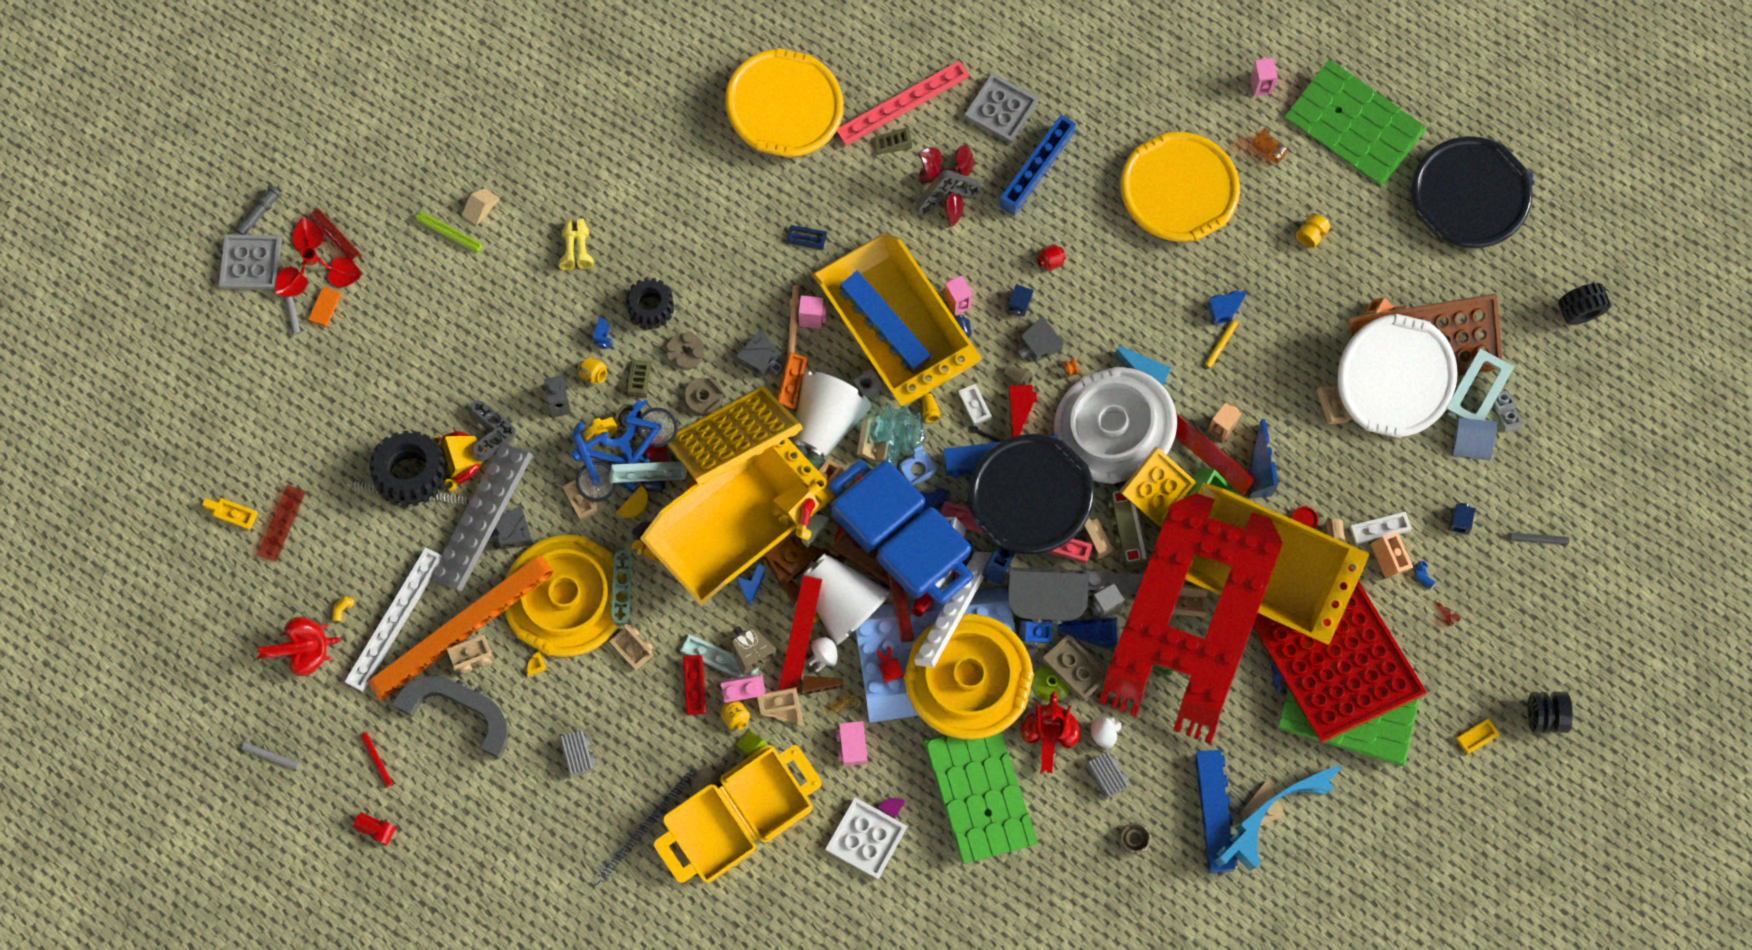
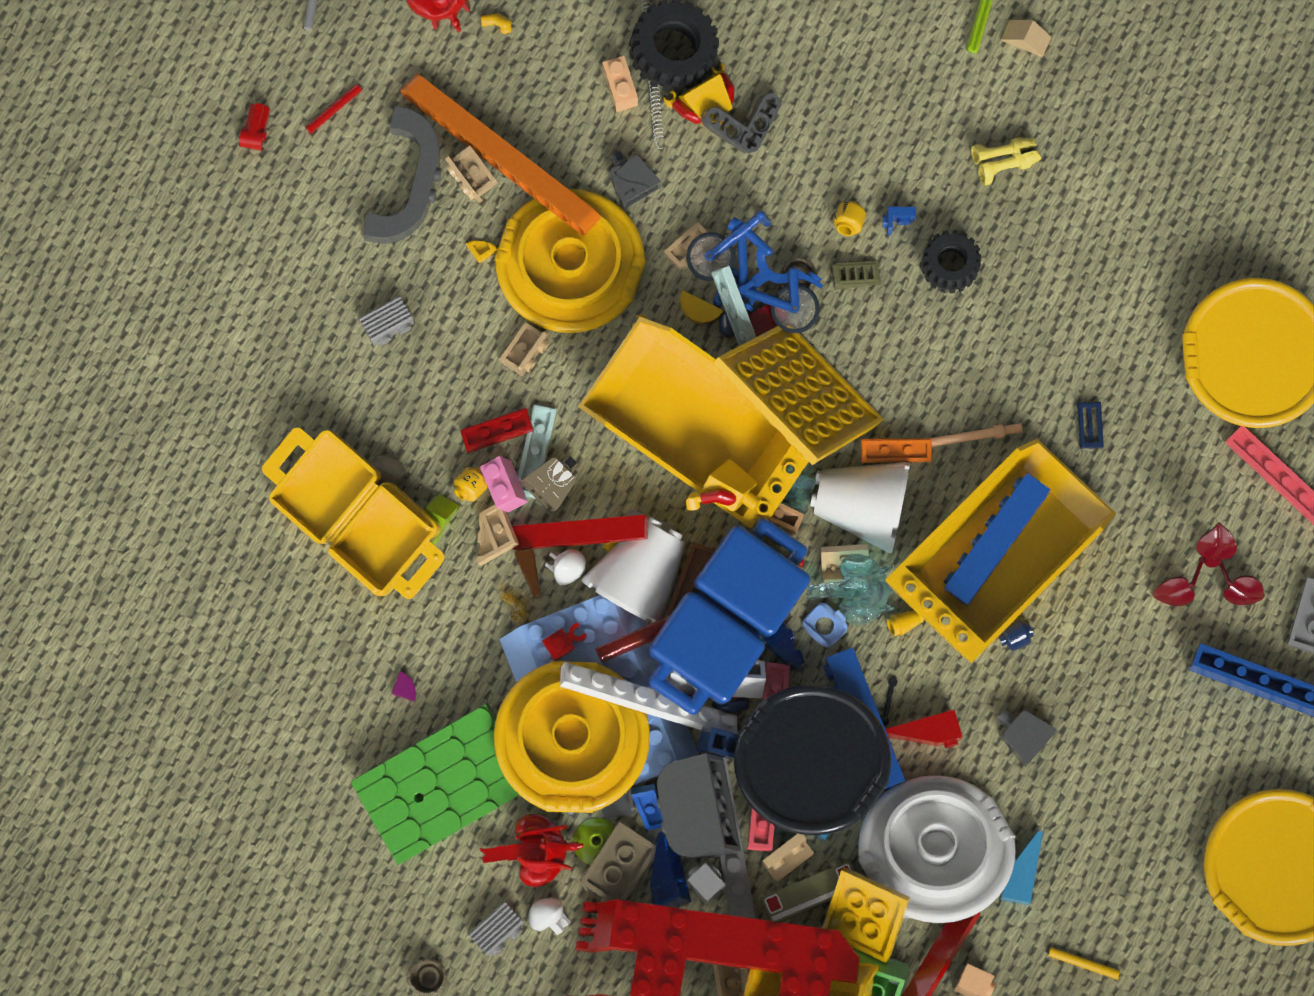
camera: 80 degrees right, 5 degrees up
(393, 620) = (497, 82): white plate -> none
(426, 520) = (620, 83): none -> light nougat brick
(481, 516) = (637, 141): light grey plate -> none
(557, 394) = (807, 186): dark grey torso -> none
(599, 426) = (775, 239): yellow plate -> none
(621, 587) = (591, 321): sand green beam -> none
(639, 530) = (666, 320): black arm -> none
(645, 826) = (320, 417): piece -> none
(685, 361) = (917, 319): dark tan plate -> none
(703, 386) = (850, 341): dark tan plate -> none
(750, 588) = (624, 465): blue slope -> none
(760, 356) = (919, 406): dark grey torso -> none
(791, 559) = (667, 501): reddish brown wing -> none
(812, 312) = (987, 451): bright pink brick -> none
(816, 524) = (715, 517): light aqua tile -> none
(852, 743) = (467, 624): bright pink brick -> none
(866, 838) = (360, 666): white plate -> none
(868, 377) = (905, 530): light grey brick -> none
(907, 144) = (1239, 501): olive slope -> none
(922, 604) = (644, 662): red cone -> none
(943, 183) = (1203, 577): dark grey beam -> none
(958, 295) = (1057, 620): bright pink brick -> none
(974, 404) = (923, 674): white plate -> none
(1018, 375) = (973, 722): dark tan cone -> none
(1020, 300) = (1073, 700): dark blue brick -> none
(1051, 257) = (1142, 726): red head -> none
(1071, 367) = (1002, 781): orange bush -> none
(1223, 308) = (1132, 958): blue slope -> none

